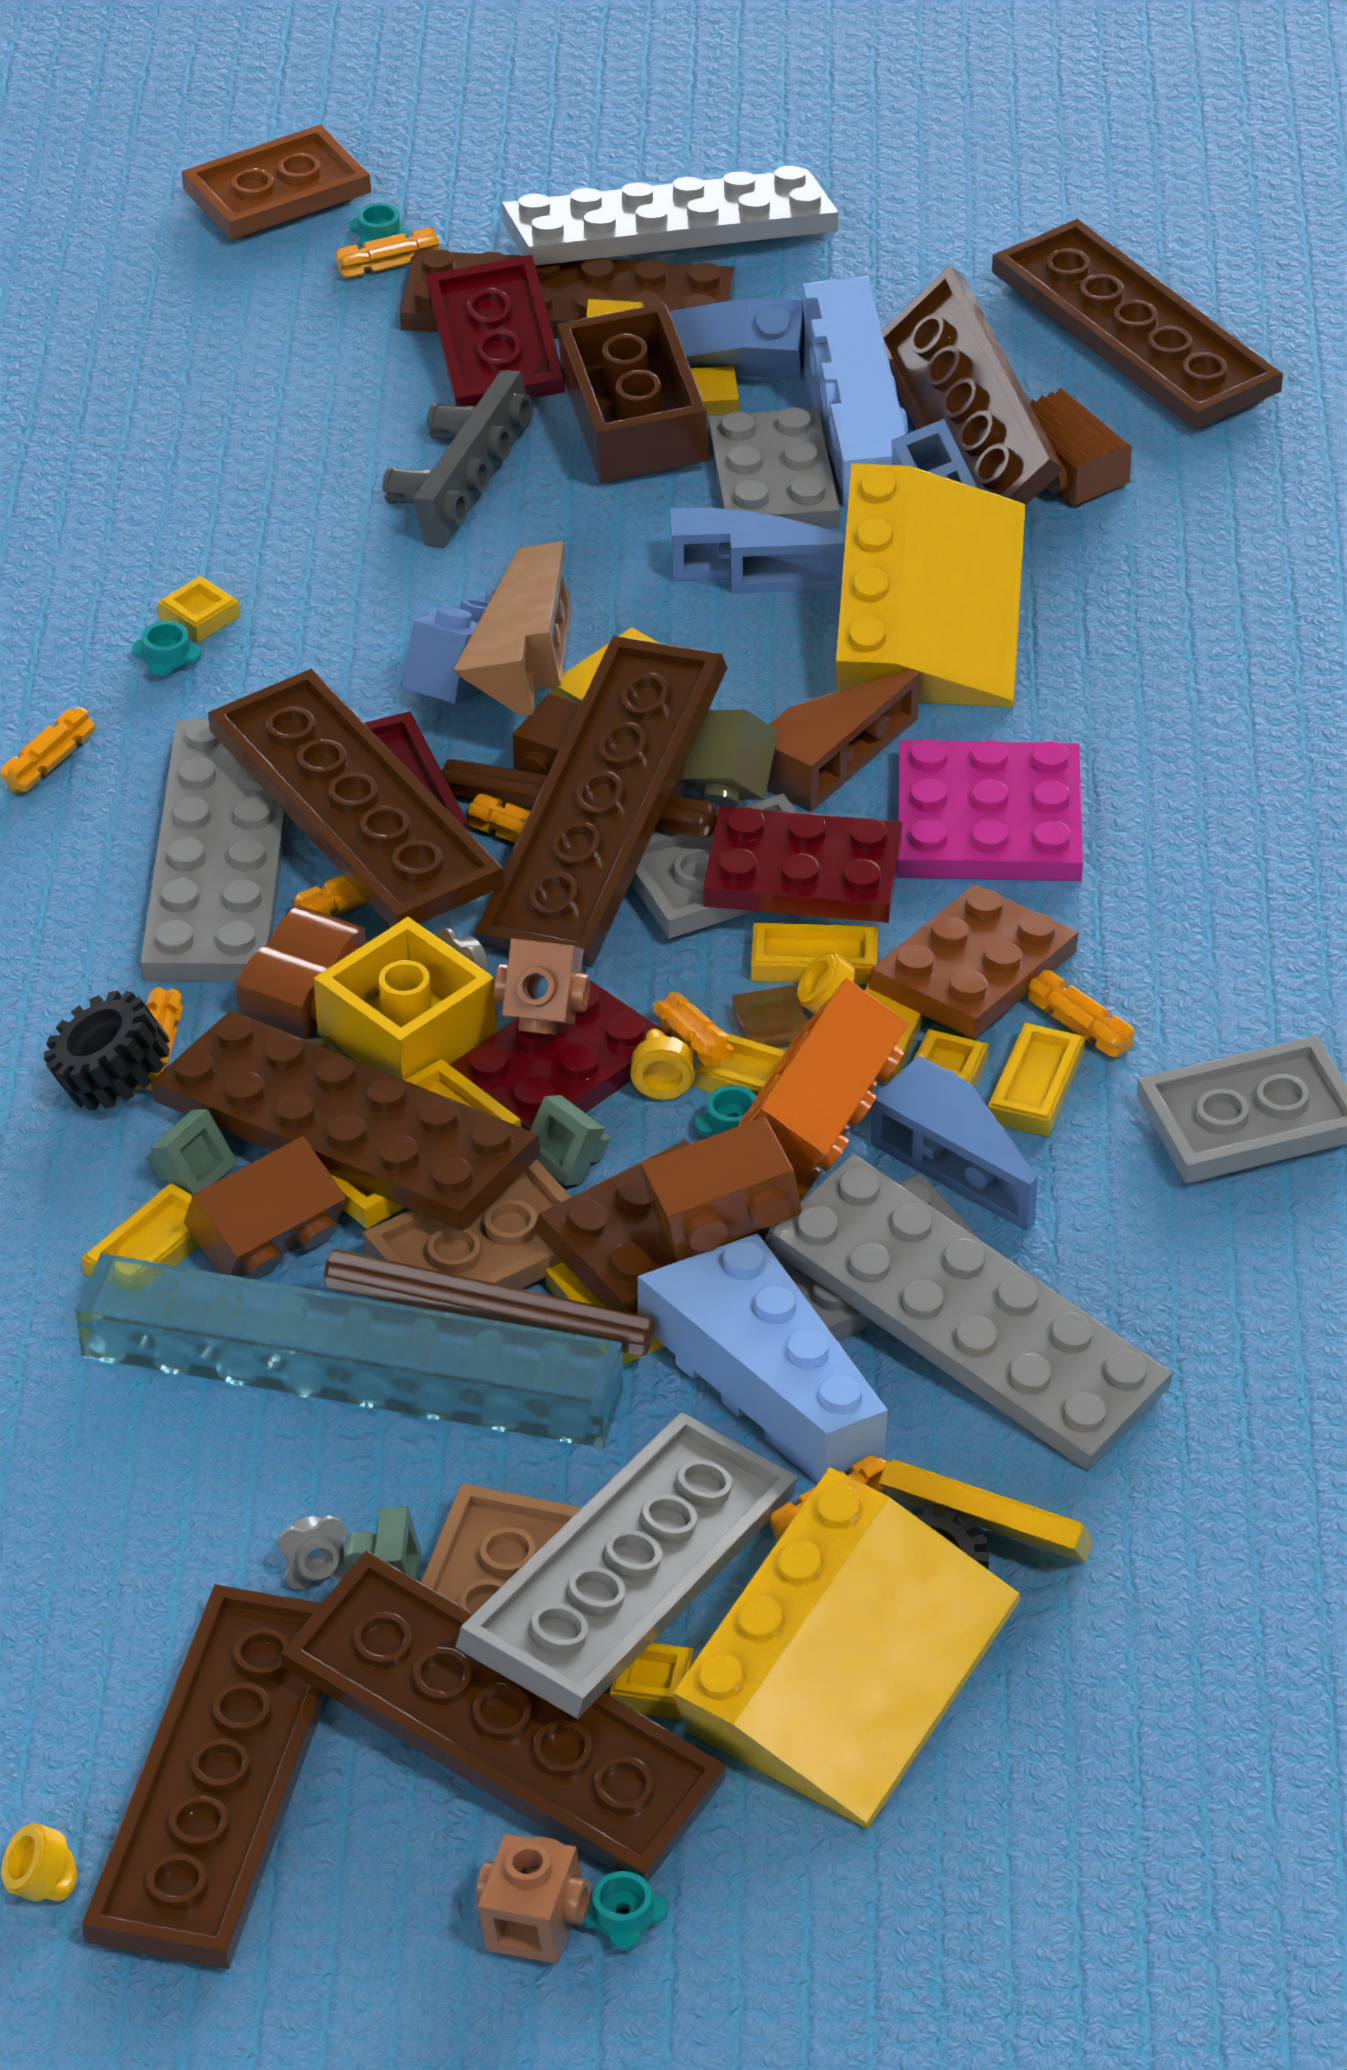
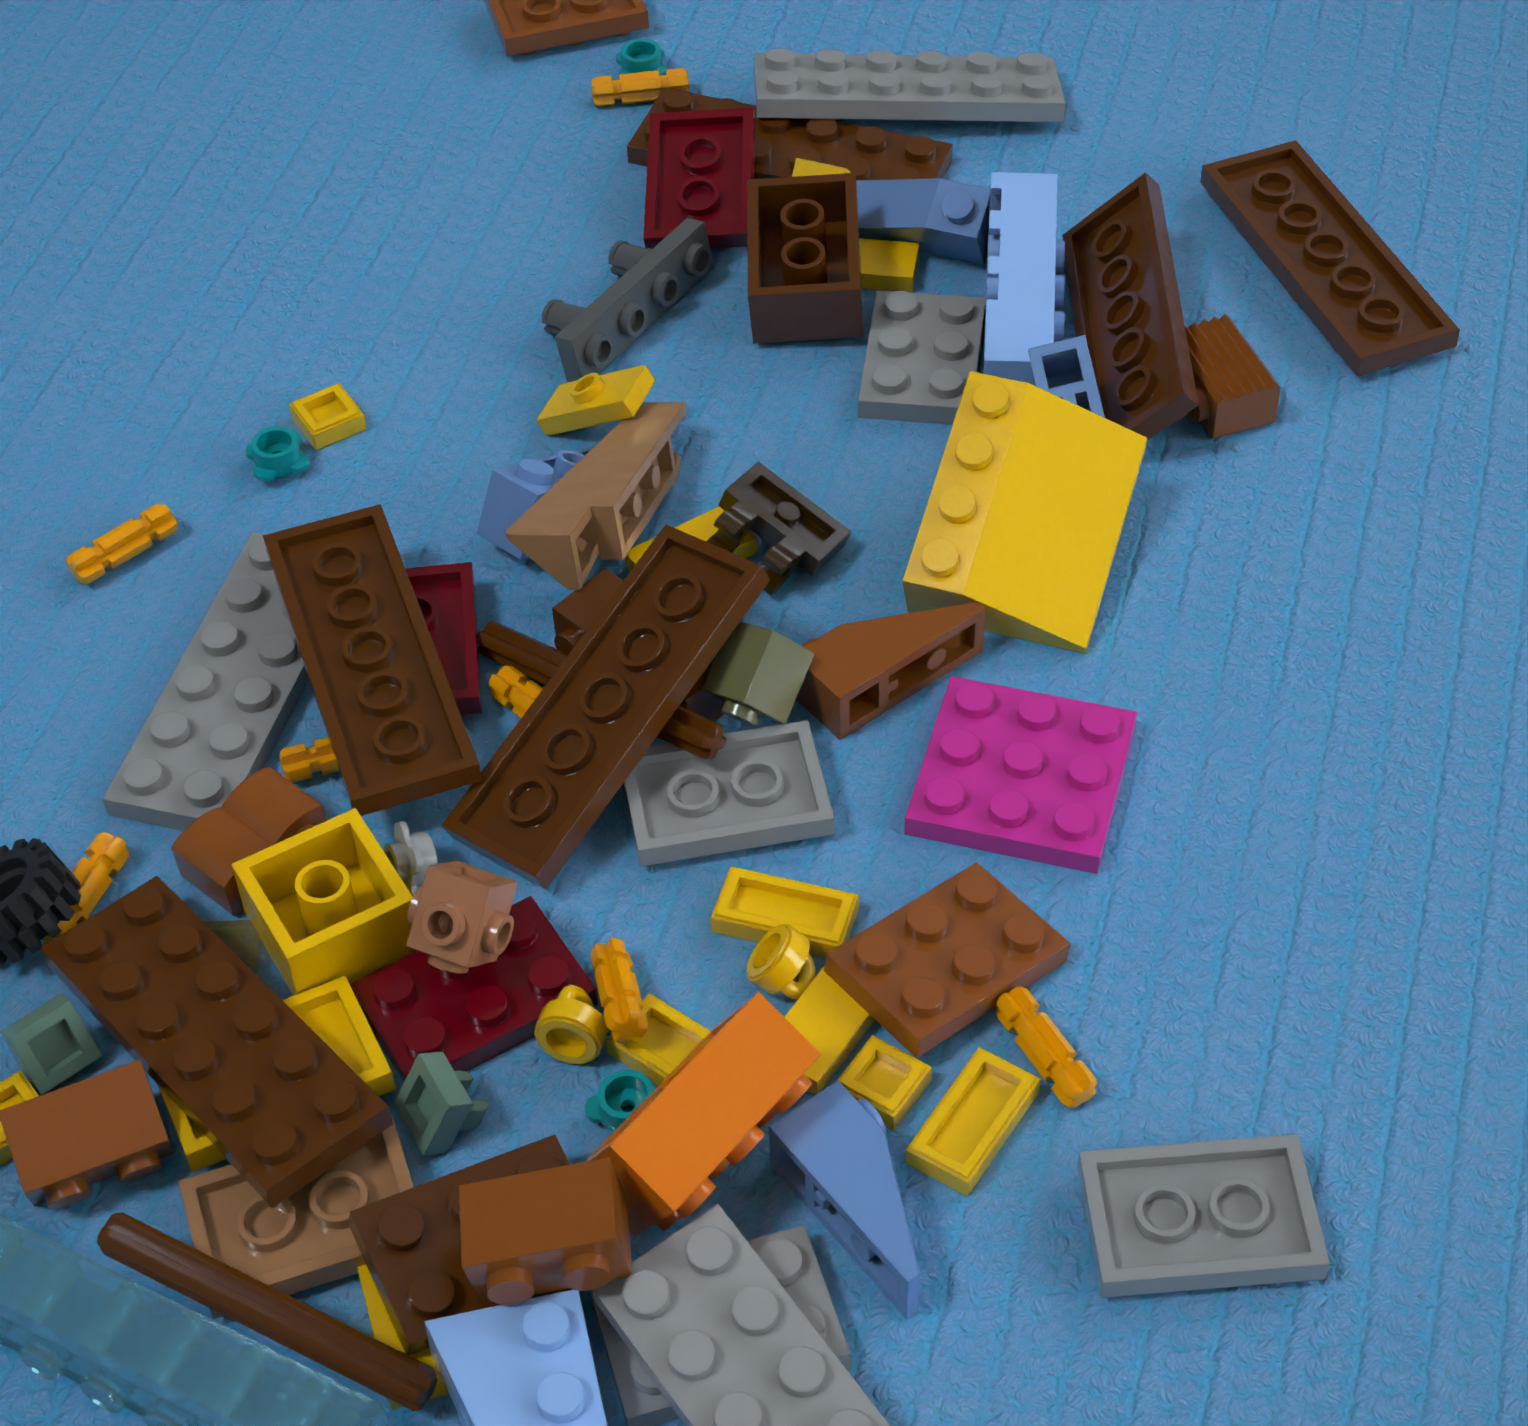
camera: 15 degrees right, 5 degrees up
(472, 552) = (596, 400): none -> yellow plate
(686, 622) = (783, 518): none -> dark brown plate
(754, 551) = (865, 436): medium blue slope -> none
(769, 1016) = (711, 984): clear orange tile -> none
(803, 864) = (797, 811): dark red plate -> none

